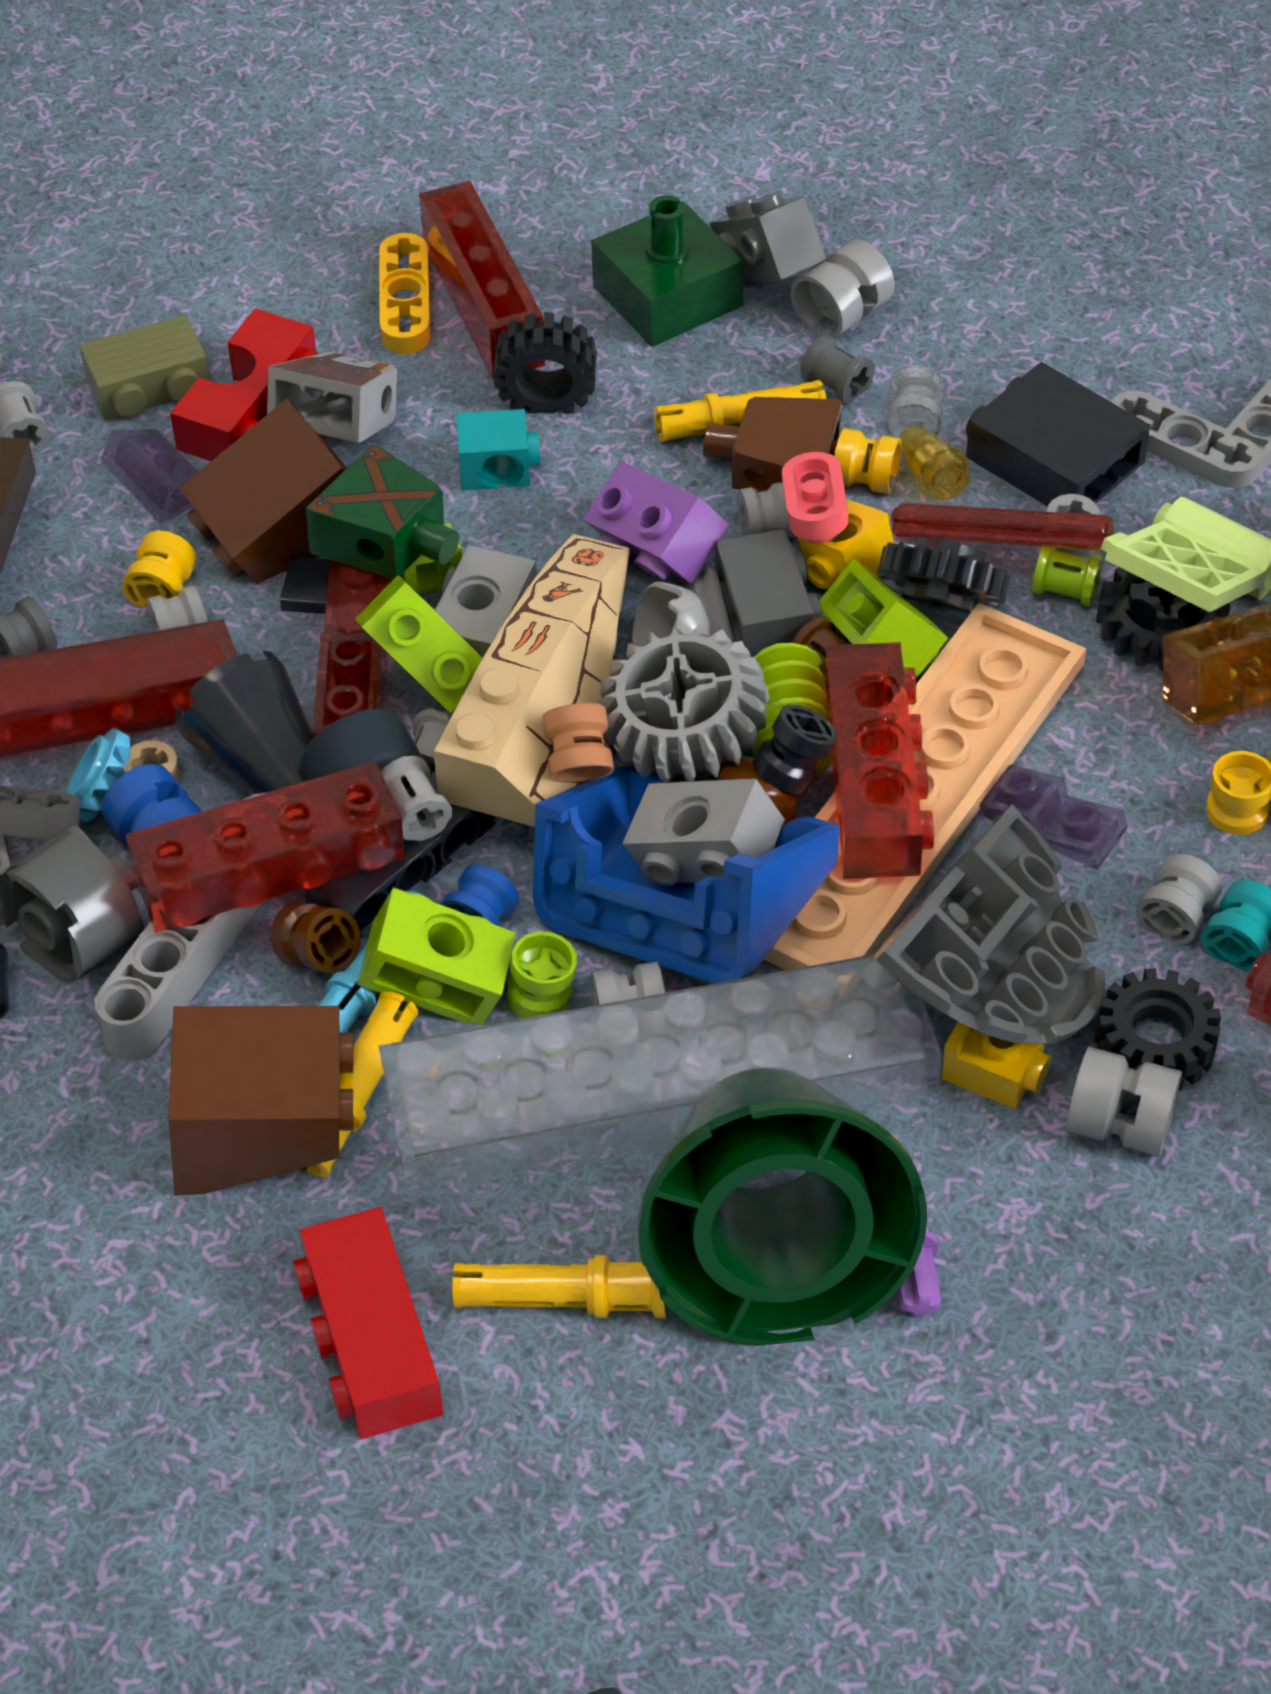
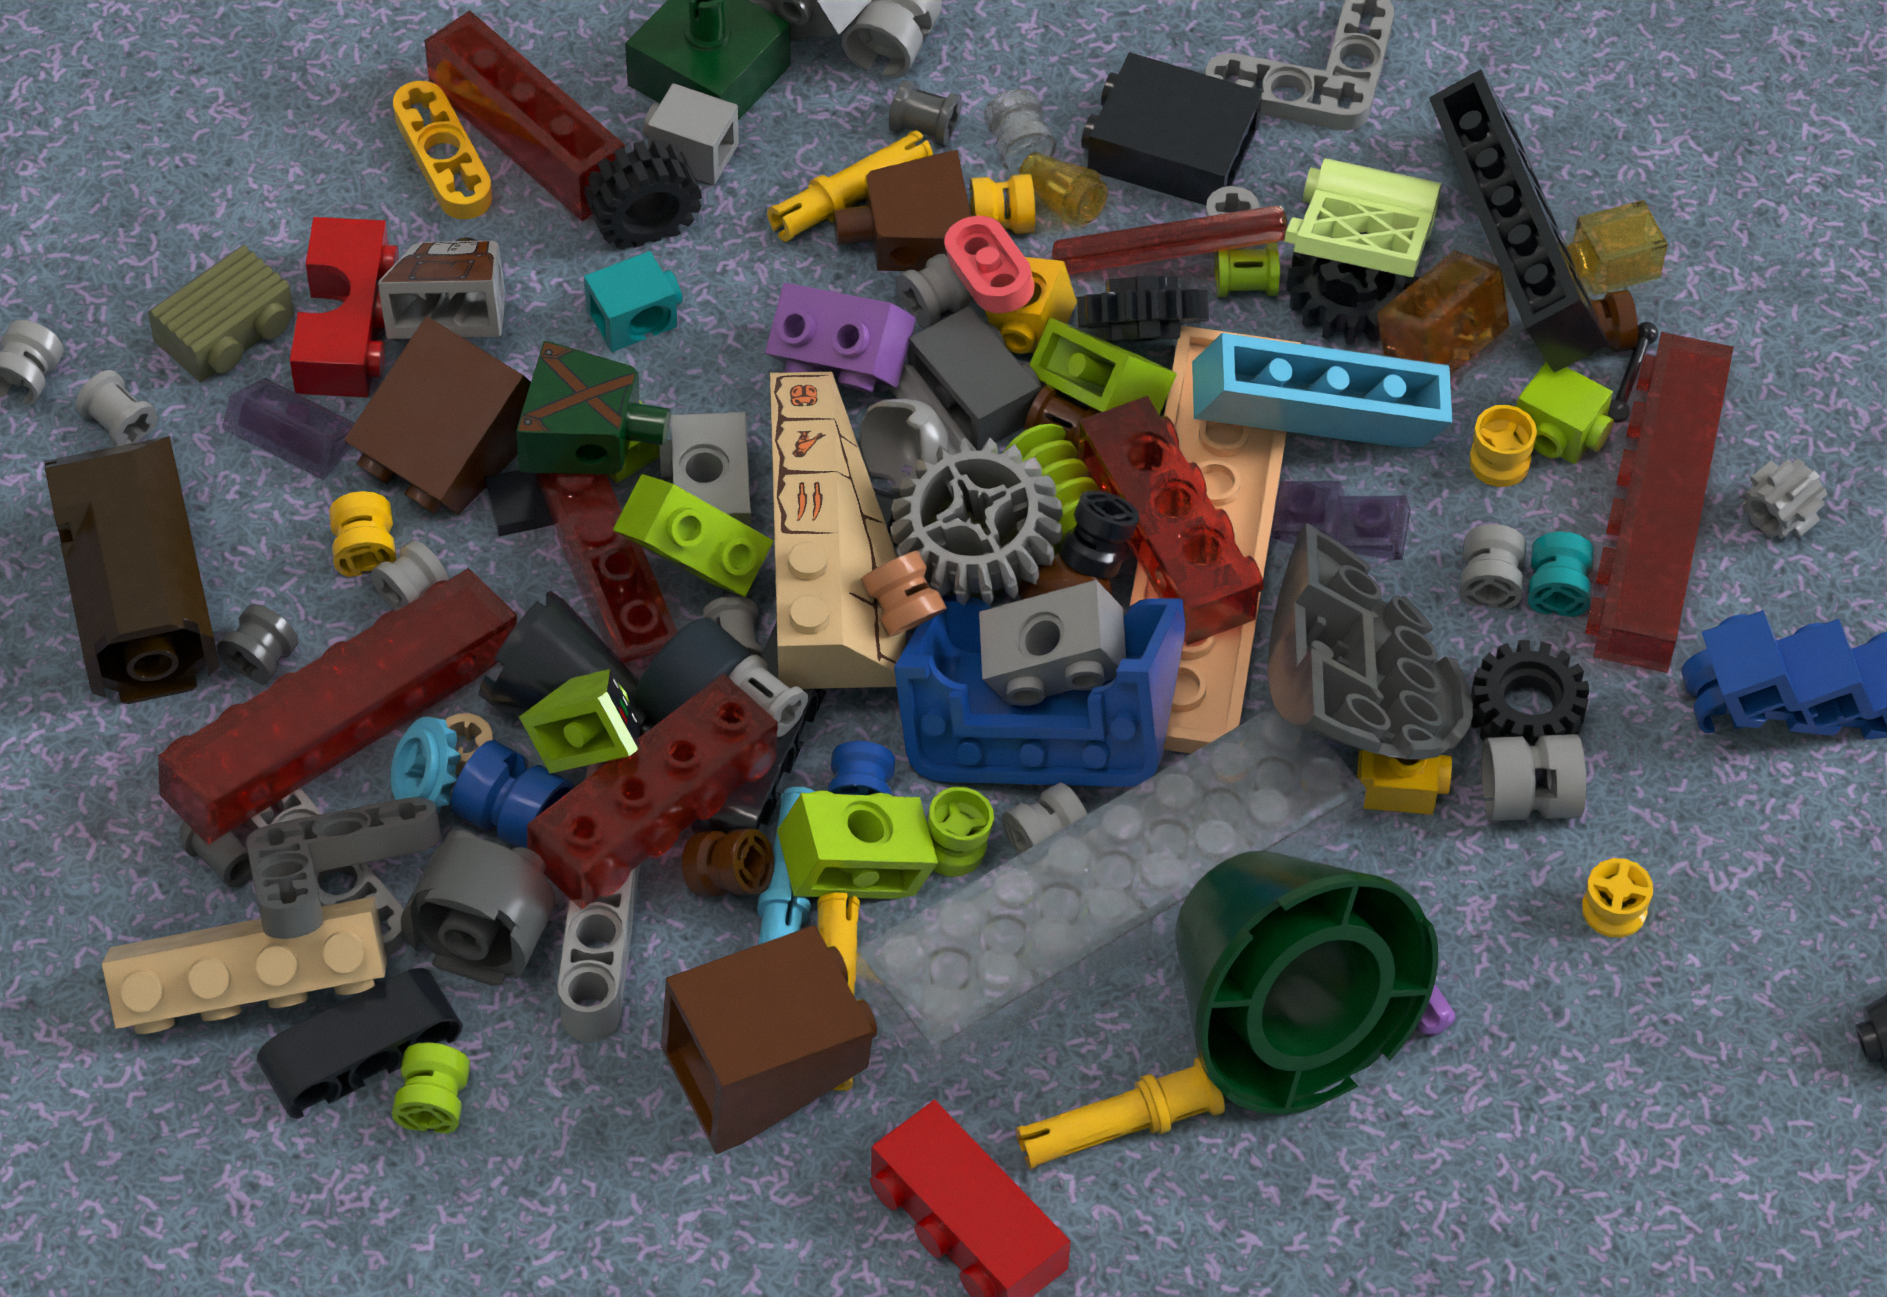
camera: 25 degrees left, 5 degrees up
(233, 766) = (583, 723): none -> lime slope
(623, 328) = (698, 126): none -> light grey brick
(1075, 688) = (1321, 391): none -> medium azure brick
(1155, 1227) = (1621, 882): none -> yellow wheel

